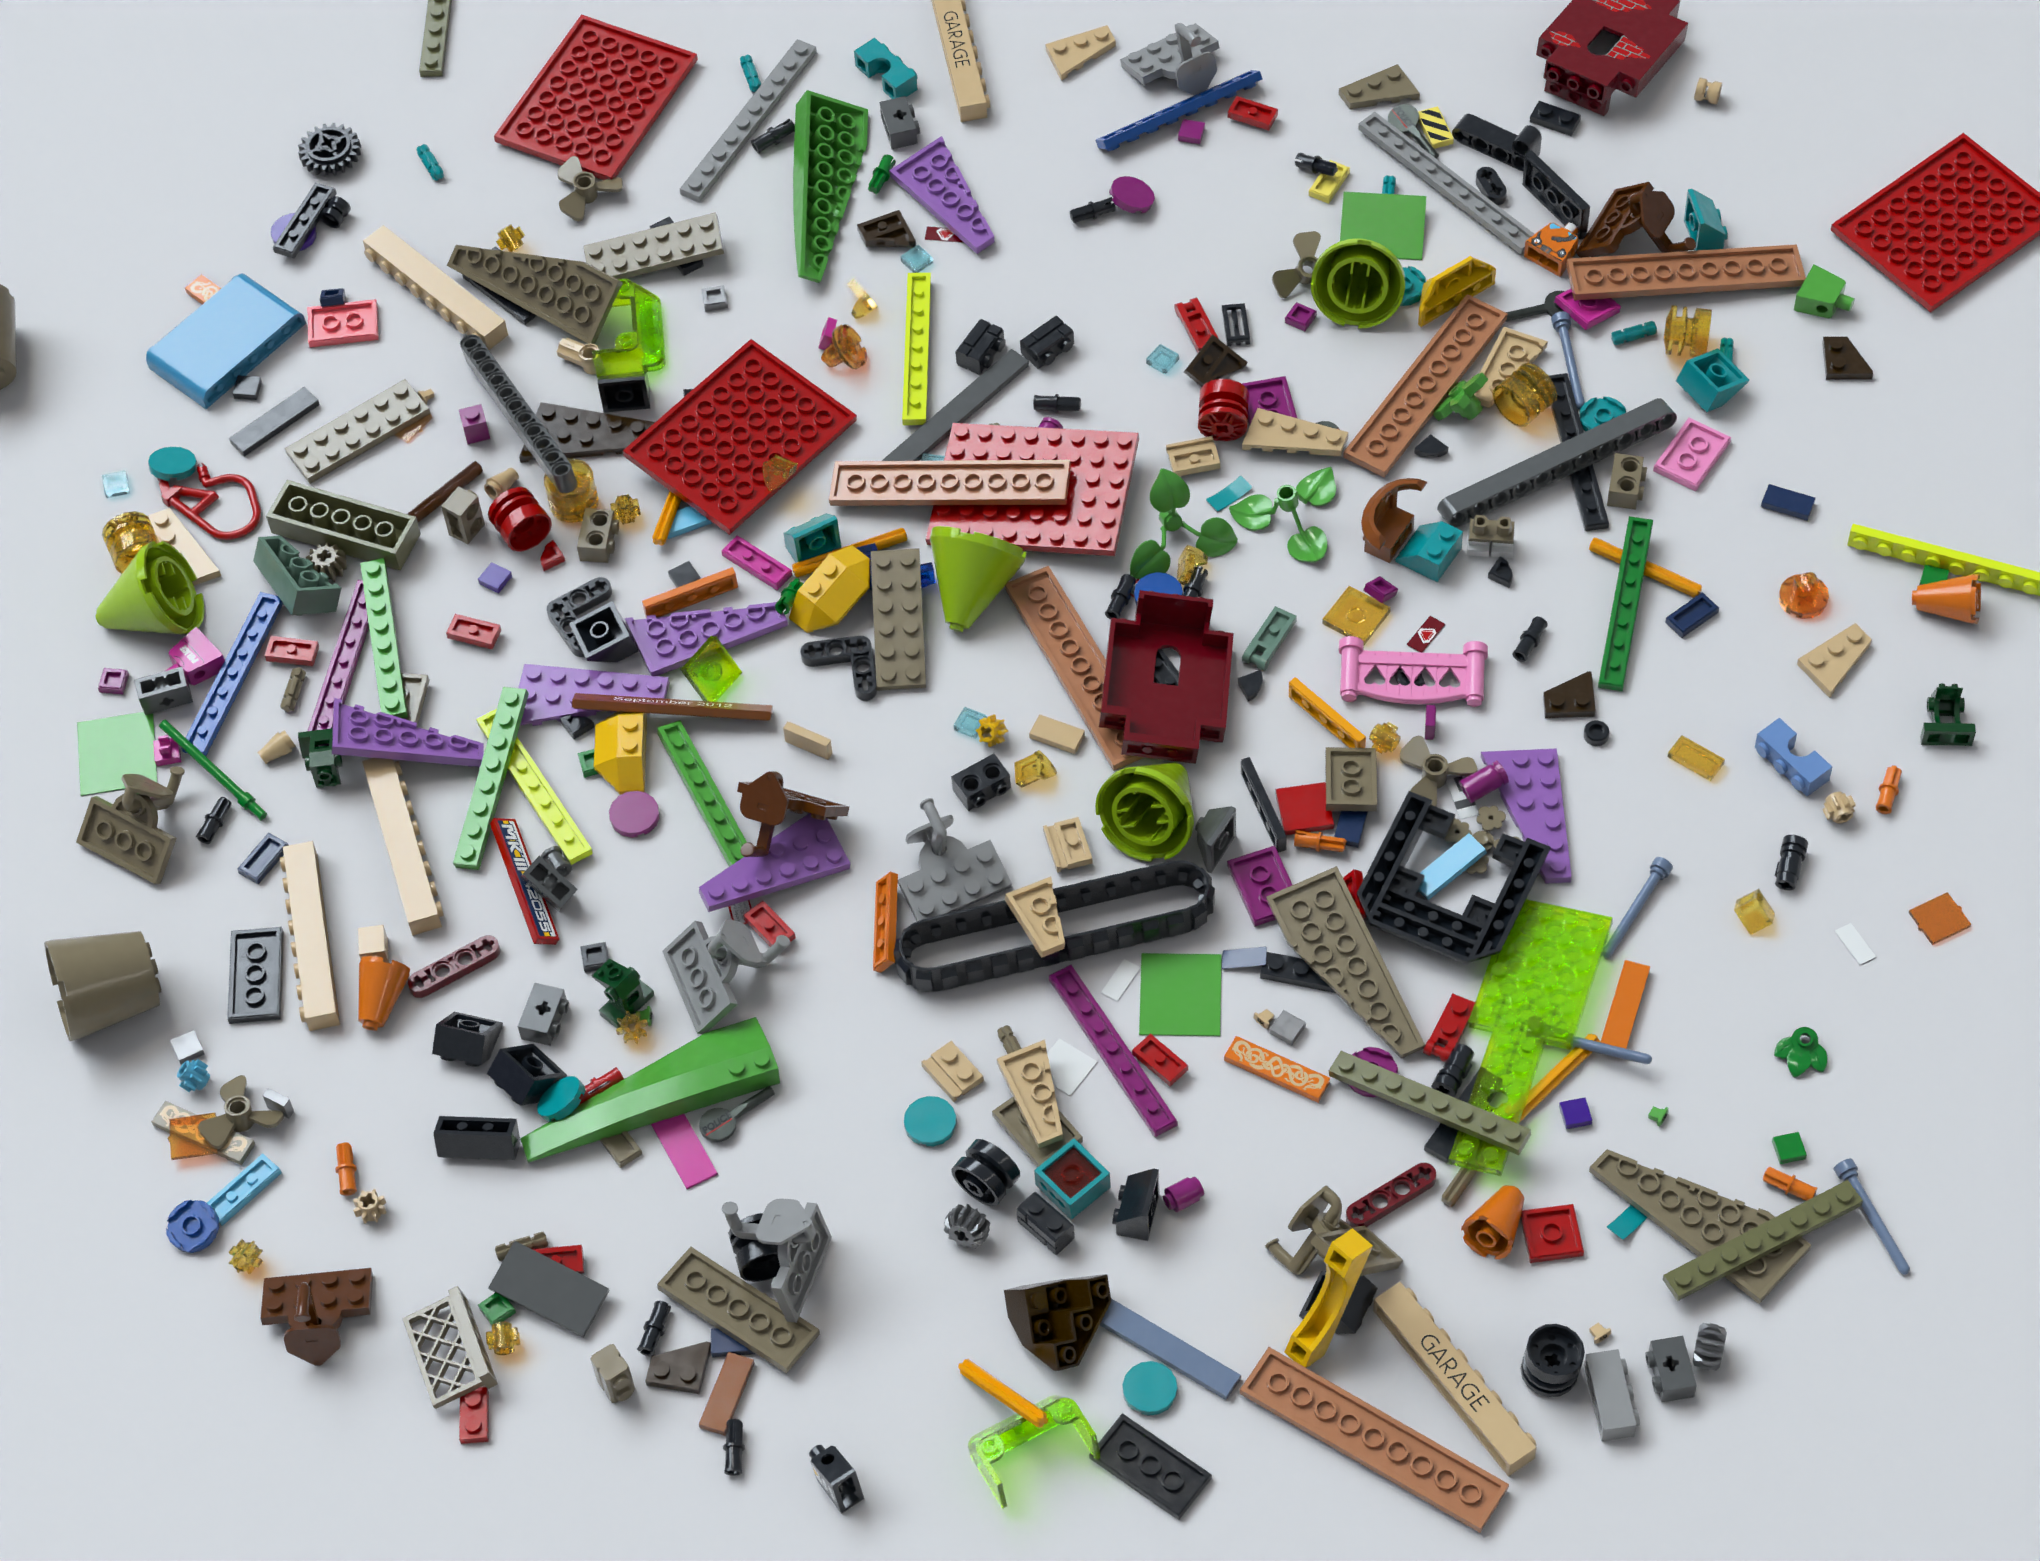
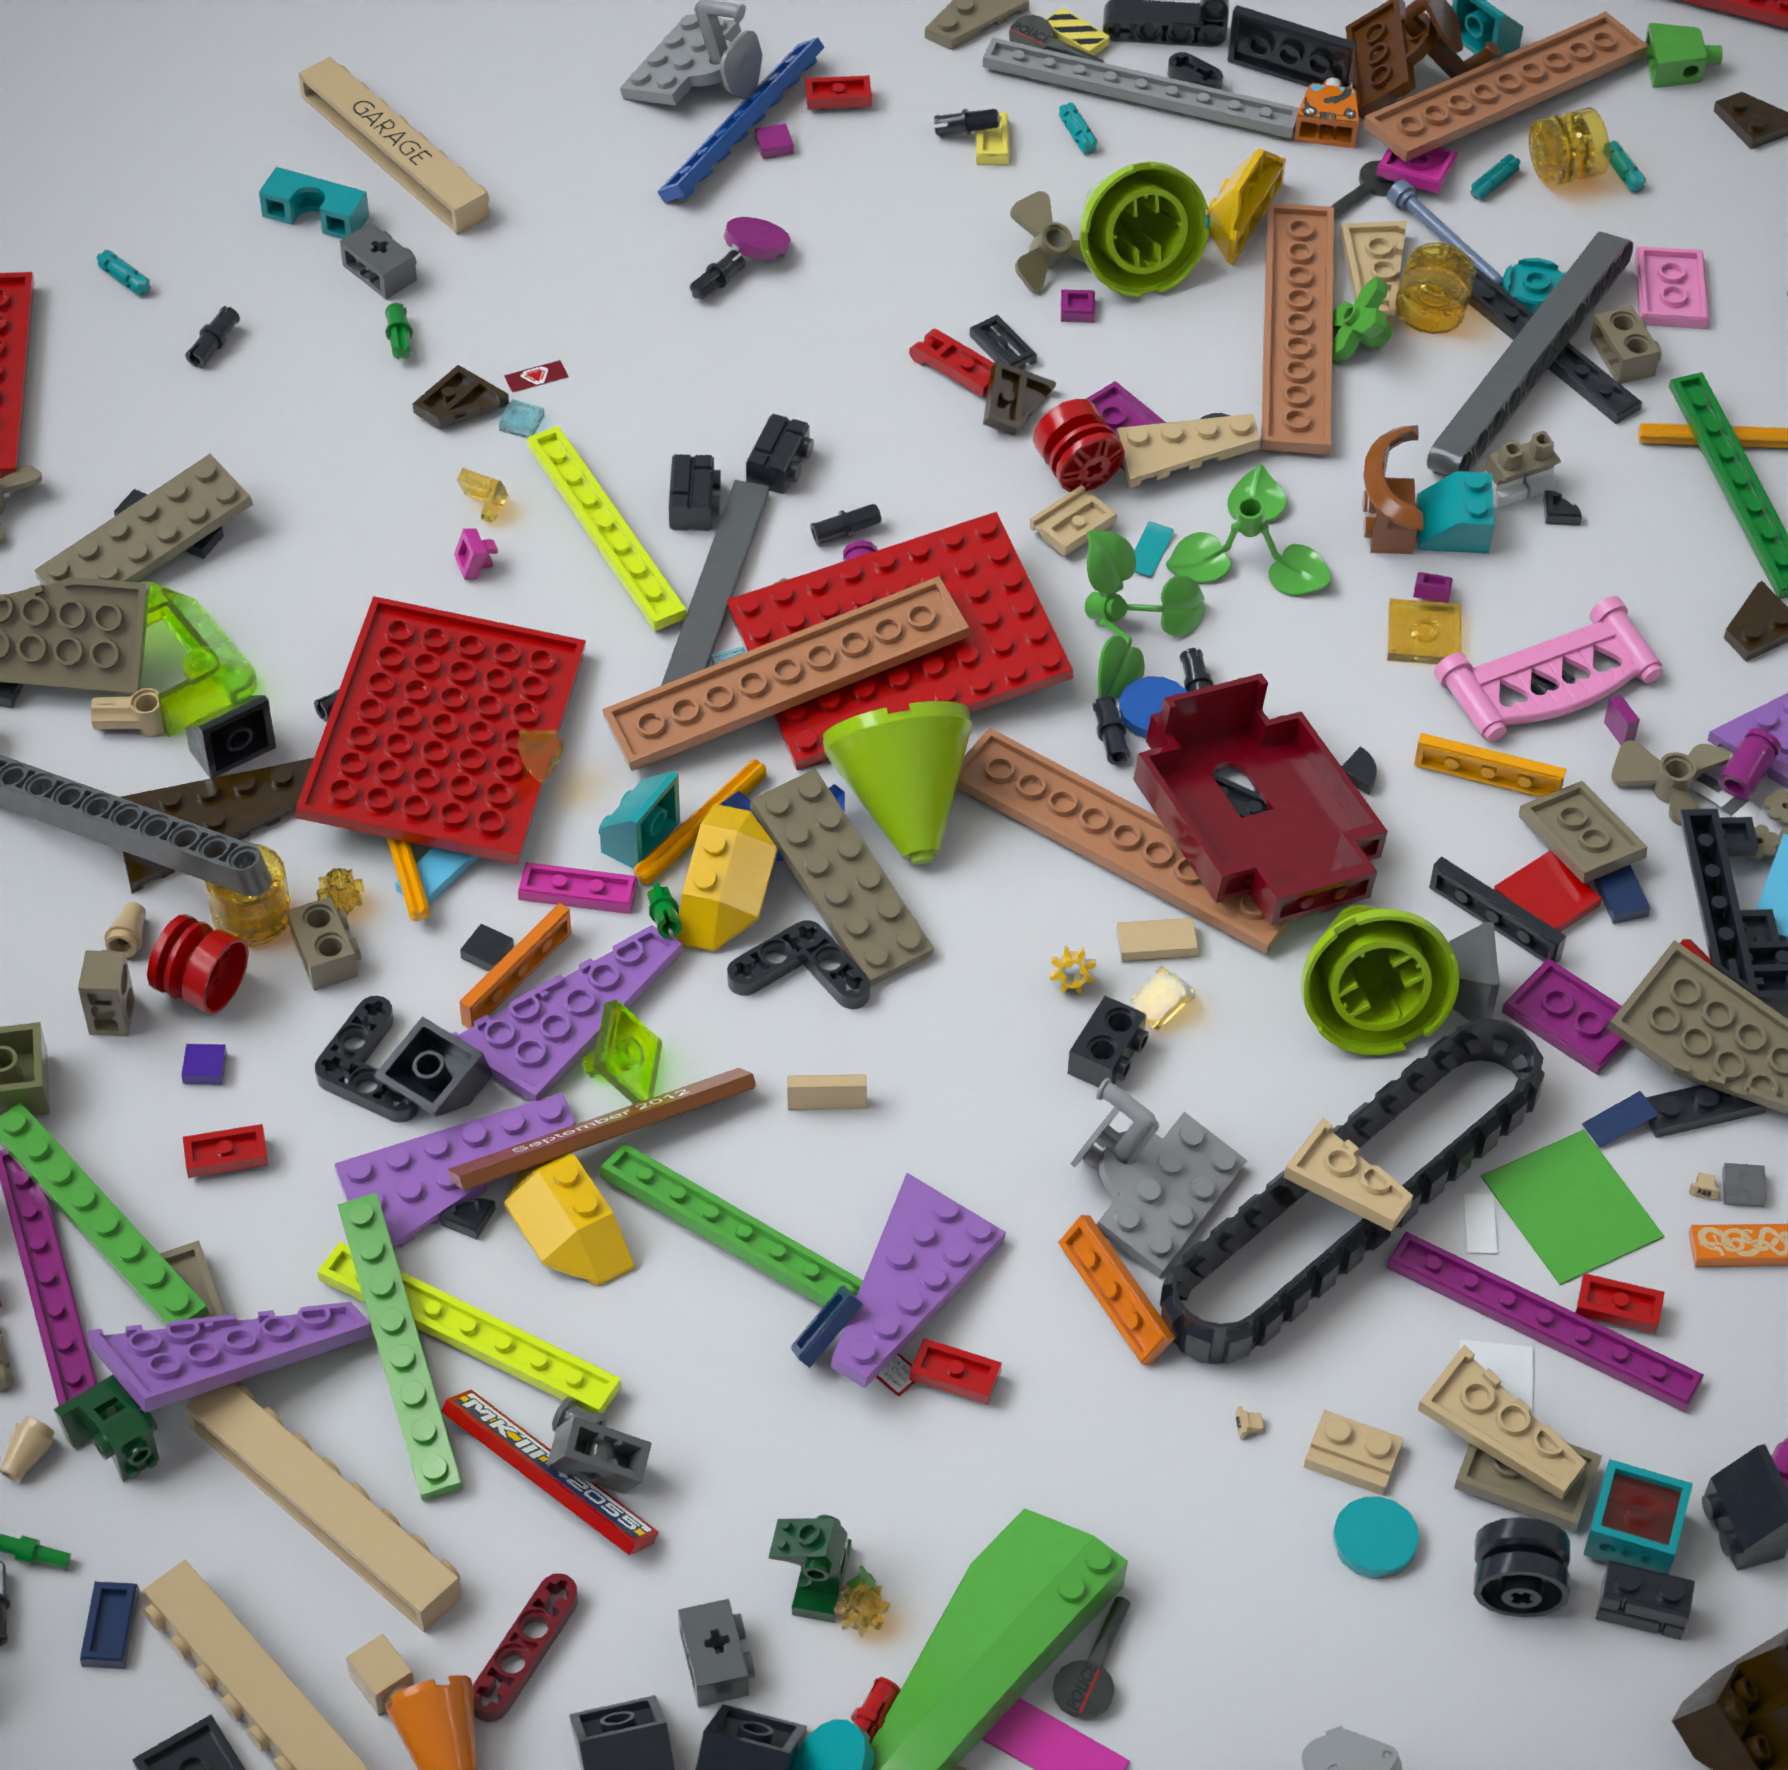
camera: 35 degrees left, 5 degrees down
(443, 493) = (49, 971): reddish brown axle -> none
(474, 424) = (33, 865): magenta brick -> none
(551, 556) = (269, 1000): red tile -> none
(587, 763) = (524, 1262): green tile -> none
(594, 956) = (728, 1533): tile -> none
(634, 814) = (643, 1303): tile -> none
(708, 964) = (917, 1478): light grey plate -> none
(713, 869) = (826, 1326): none -> dark blue tile
(714, 298) = (271, 570): flat silver tile -> none
(748, 121) = (160, 334): light grey plate -> none
(768, 802) = (871, 1189): reddish brown plate -> none
(826, 159) = (314, 349): bright green wedge -> none
(845, 348) = (511, 563): clear orange tile -> none
(908, 1028) = (1248, 1422): none -> tan piece
(942, 190) = (499, 322): medium lavender wing -> none
(967, 1226) = (1548, 1657): flat silver gear -> none
(968, 722) = (1029, 973): clear light blue tile -> none
(1009, 1041) = (1405, 1376): dark tan axle -> none
(1067, 844) = (1282, 1075): tan plate -> none
(1077, 49) = (553, 97): tan wing -> none
(1162, 359) = (941, 419): clear light blue tile -> none
(1188, 559) = (1168, 652): clear yellow tile -> none
(1269, 638) = (1341, 702): sand green plate -> none
(1319, 841) = (1600, 928): orange axle -> none
(1385, 737) = (1583, 762): clear yellow gear -> none
(1386, 219) = (1089, 153): bright green piece -> none
(1425, 634) = (1524, 620): dark red sticker -> none
(1431, 447) = (1360, 396): black tile -> none
(1530, 639) = (1659, 572): black pin -> none
(1711, 379) = (1633, 193): teal slope -> none

